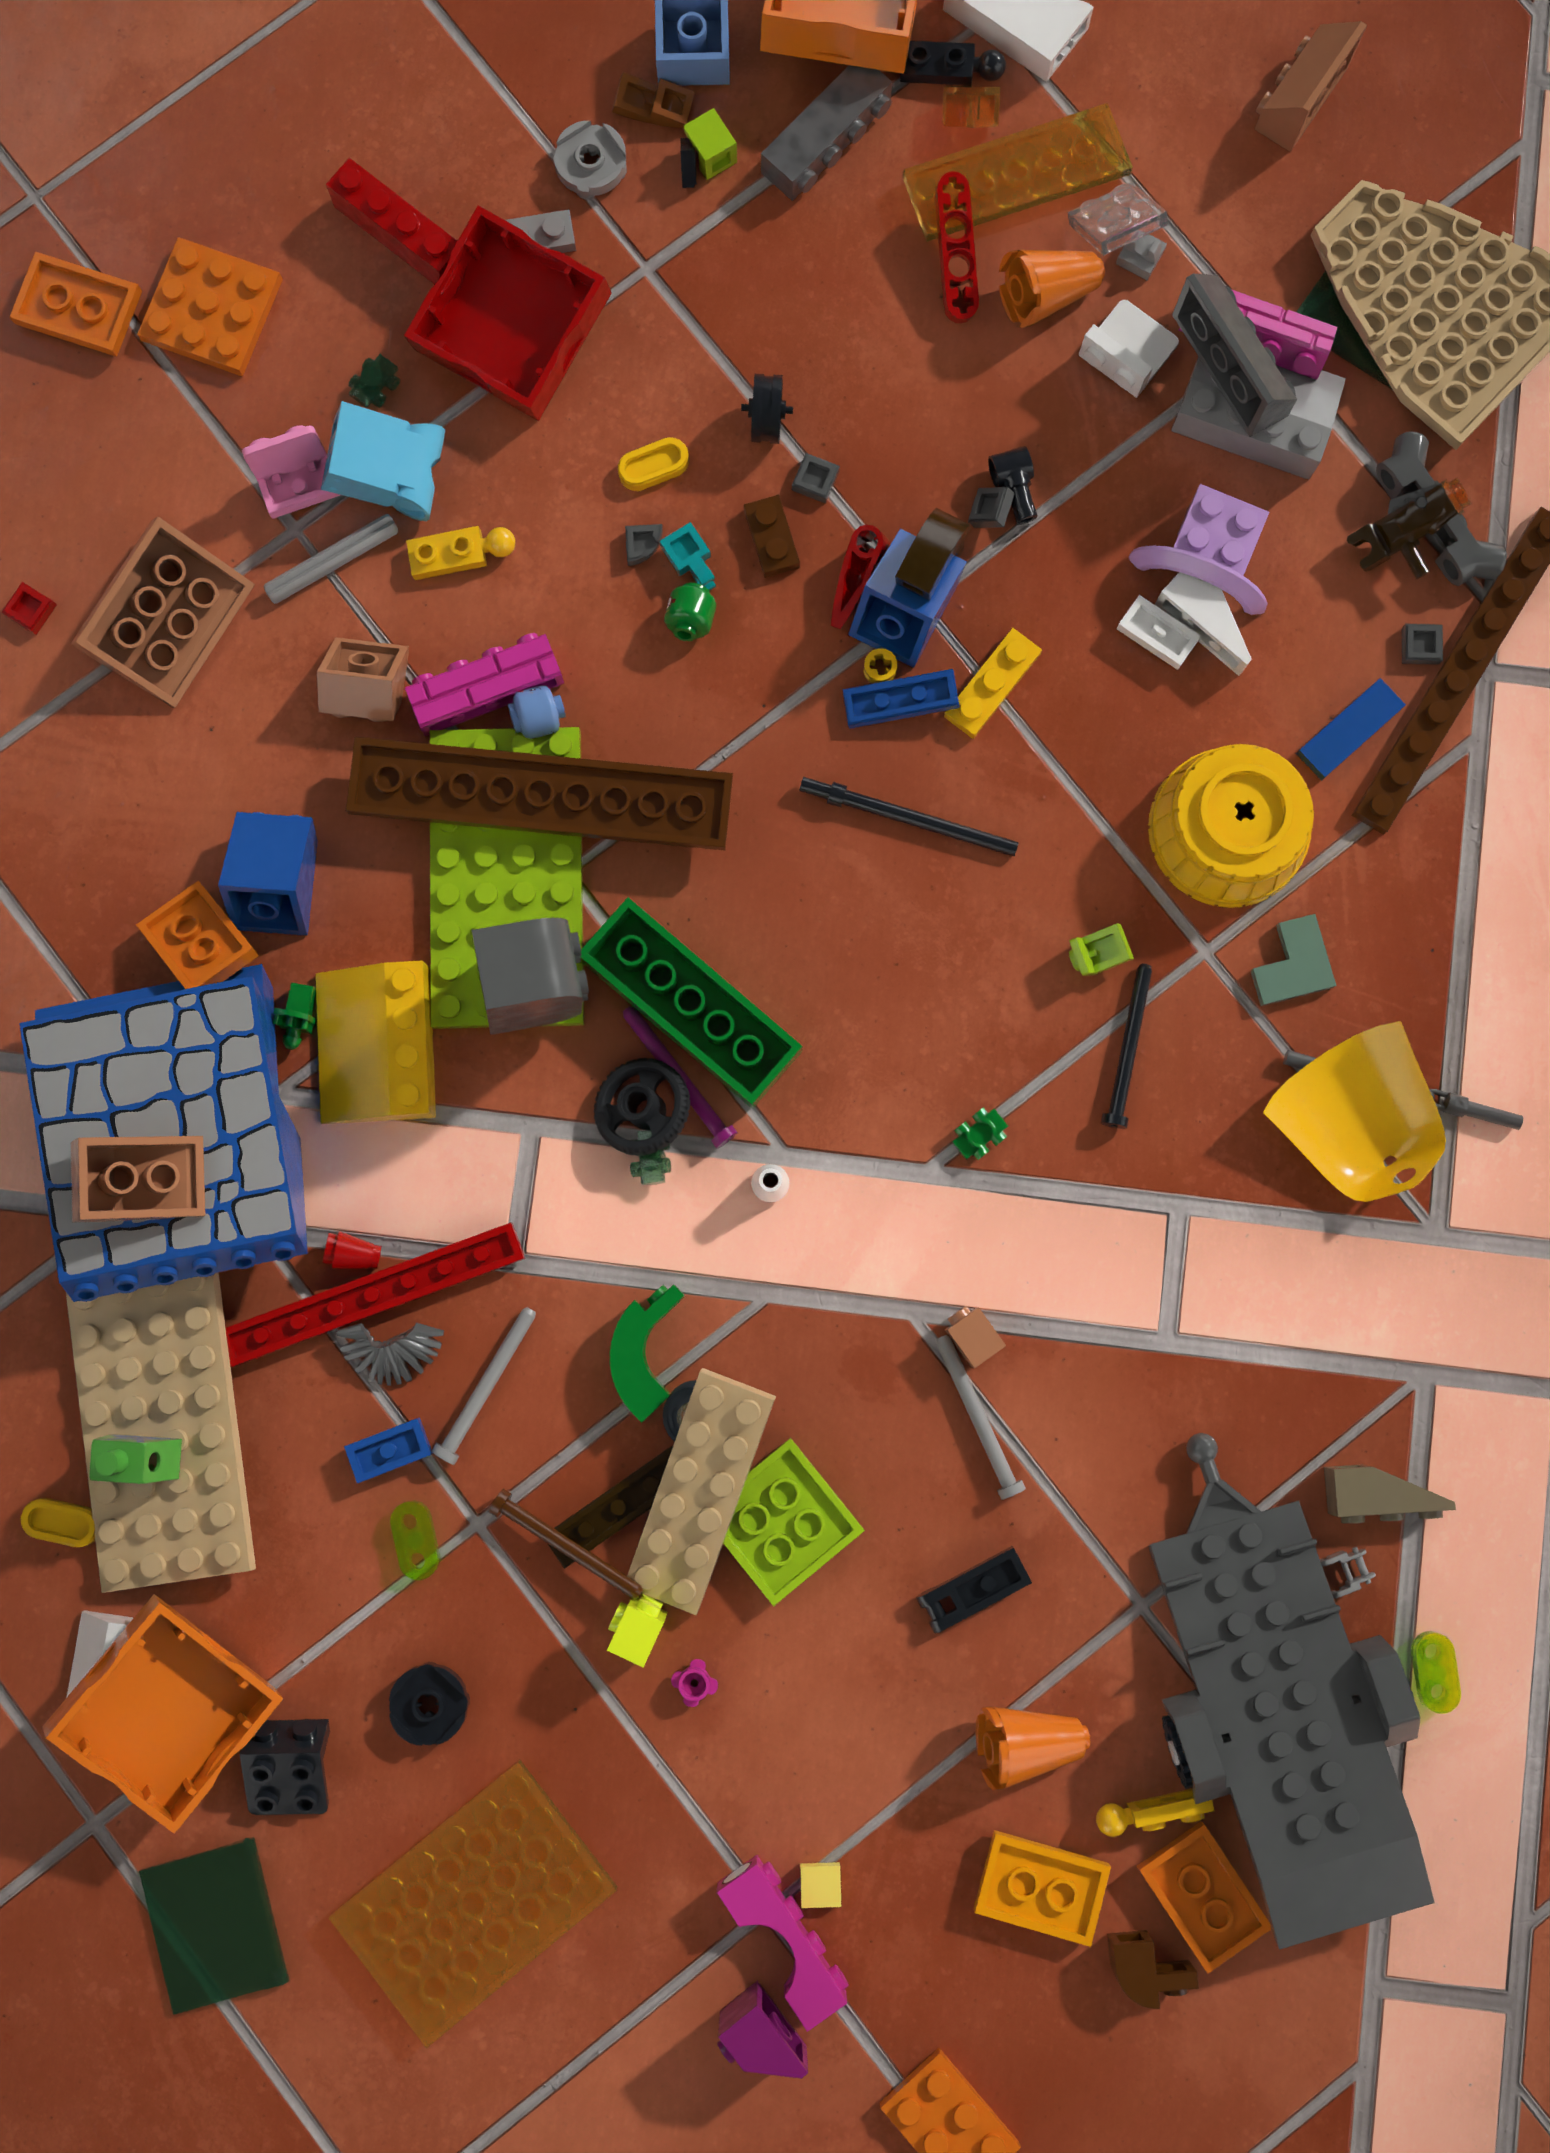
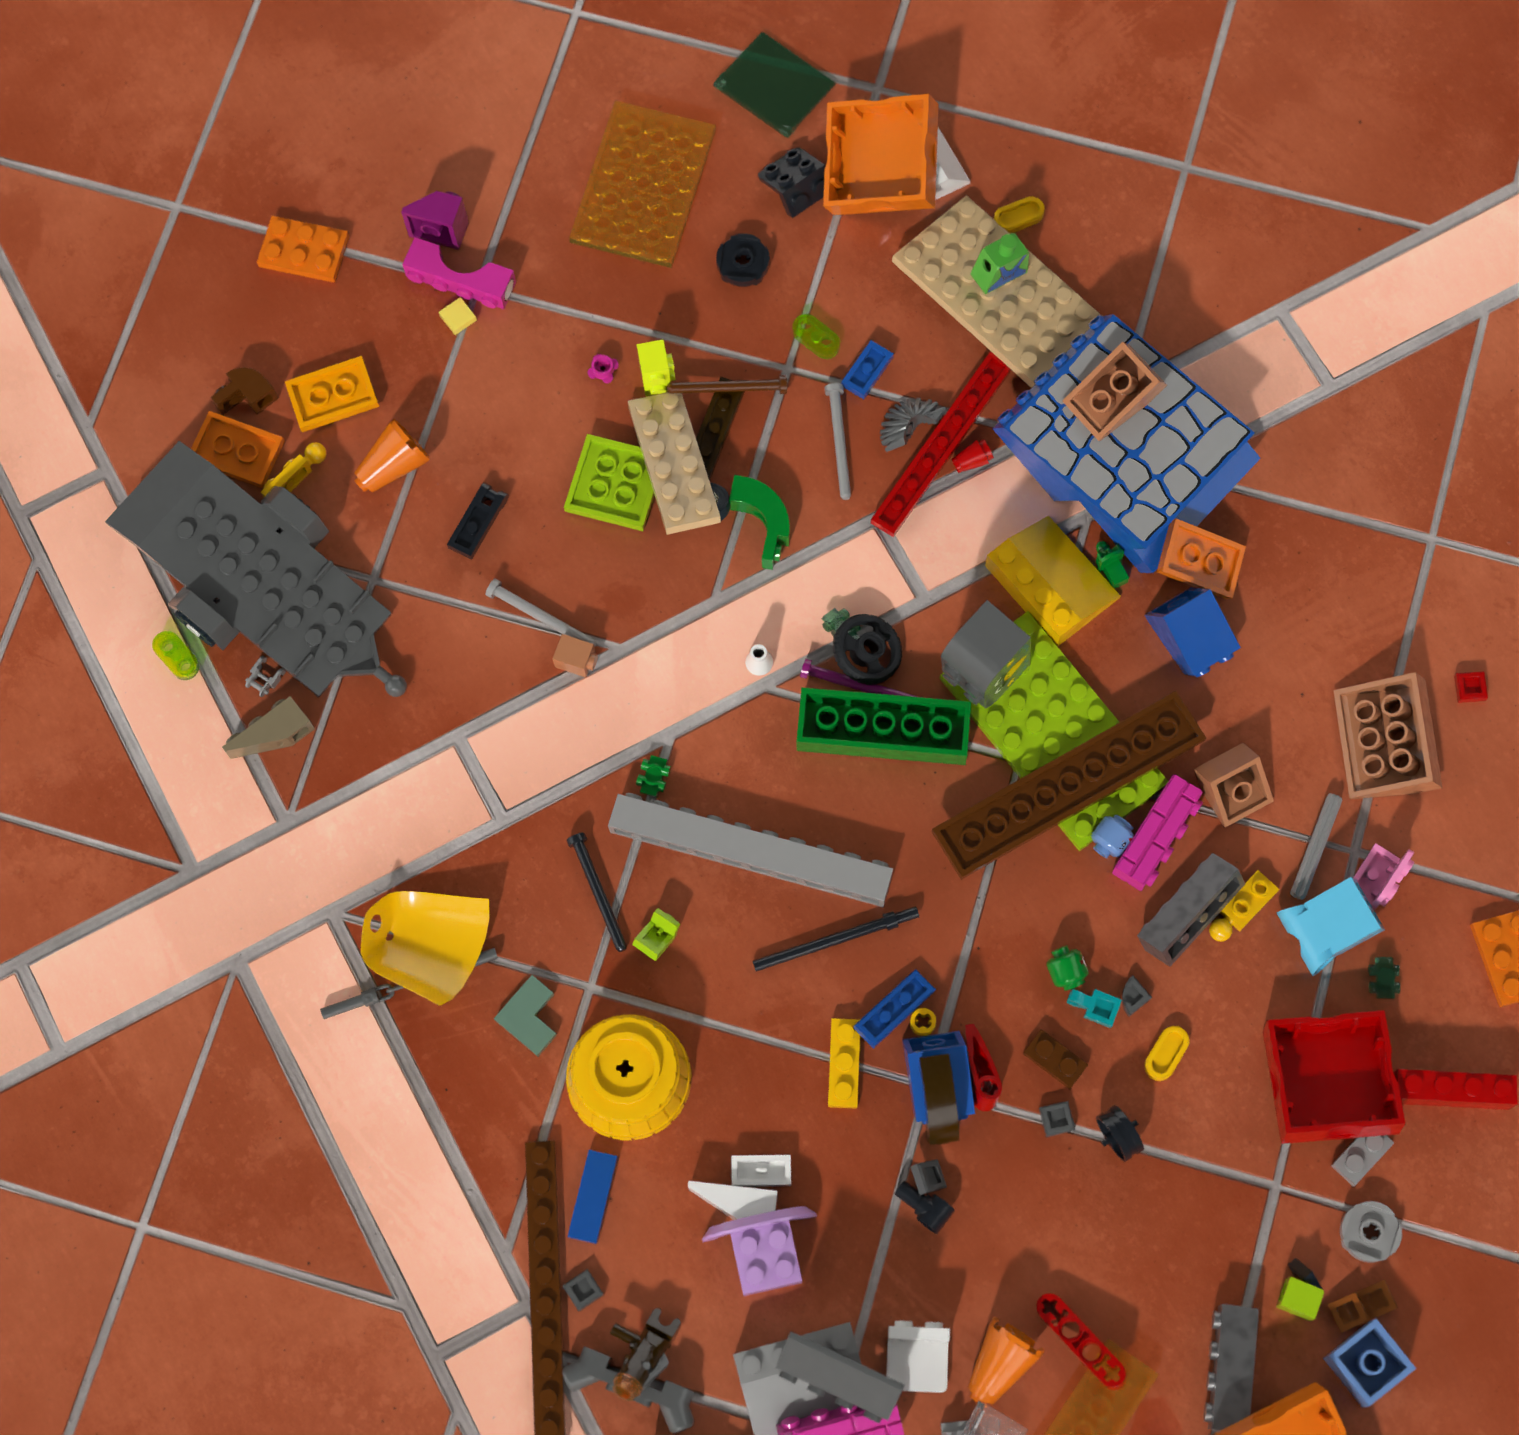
camera: 150 degrees right, 10 degrees down
(515, 579) = (1191, 909): none -> flat silver brick
(933, 973) = (750, 849): none -> light grey brick

